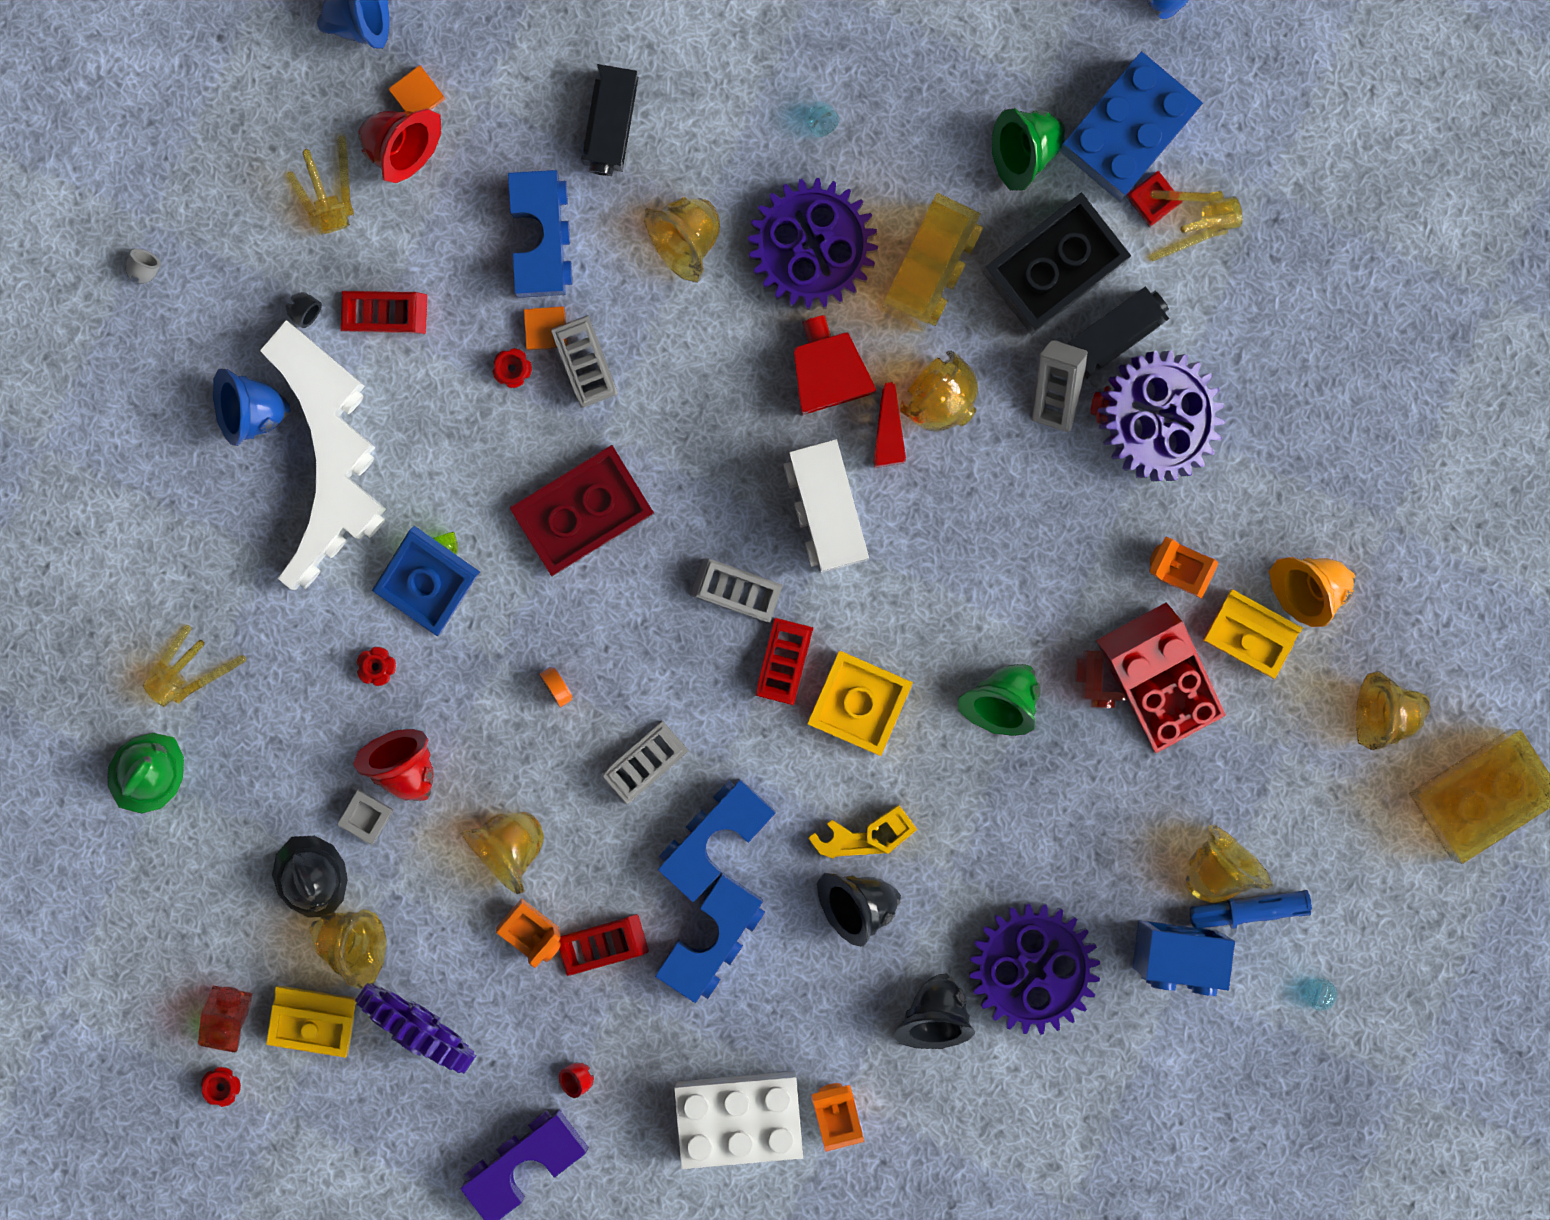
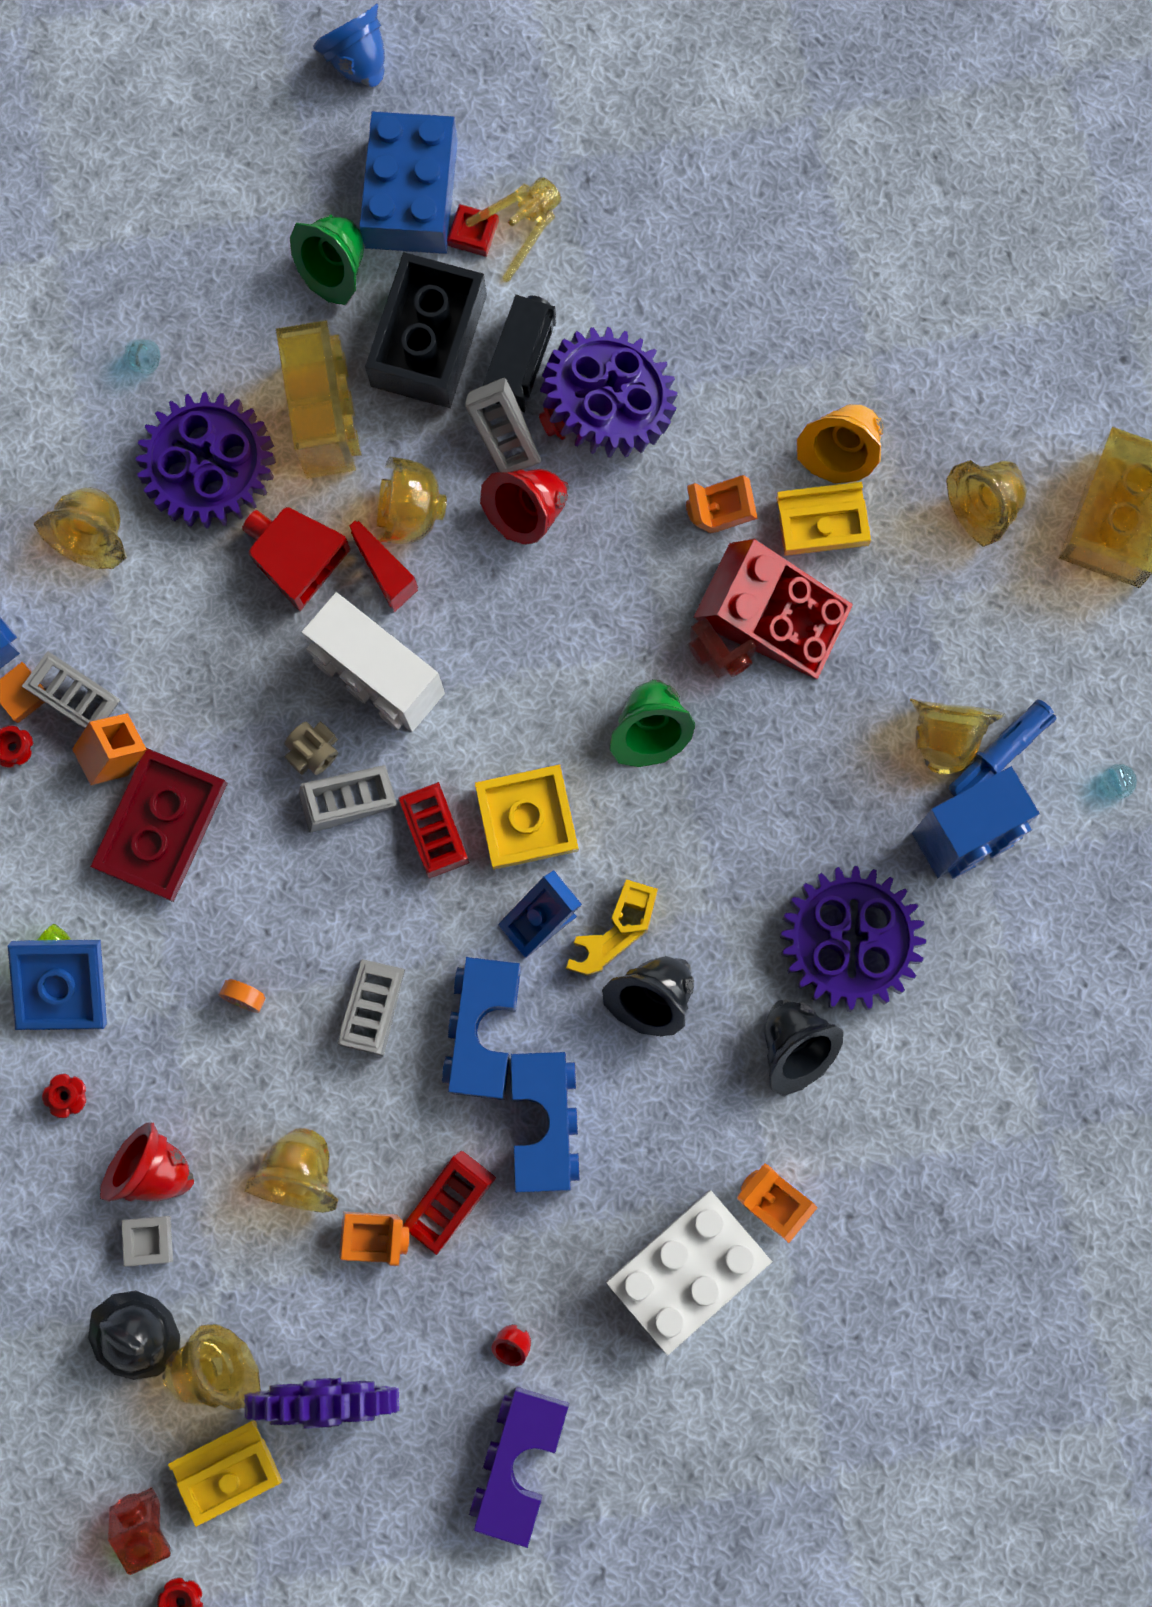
camera: 35 degrees left, 10 degrees down
(583, 428) = (109, 749): none -> orange brick
(735, 535) = (311, 748): none -> dark tan gear
(817, 785) = (540, 914): none -> blue slope
(1032, 459) = (523, 503): none -> red piece

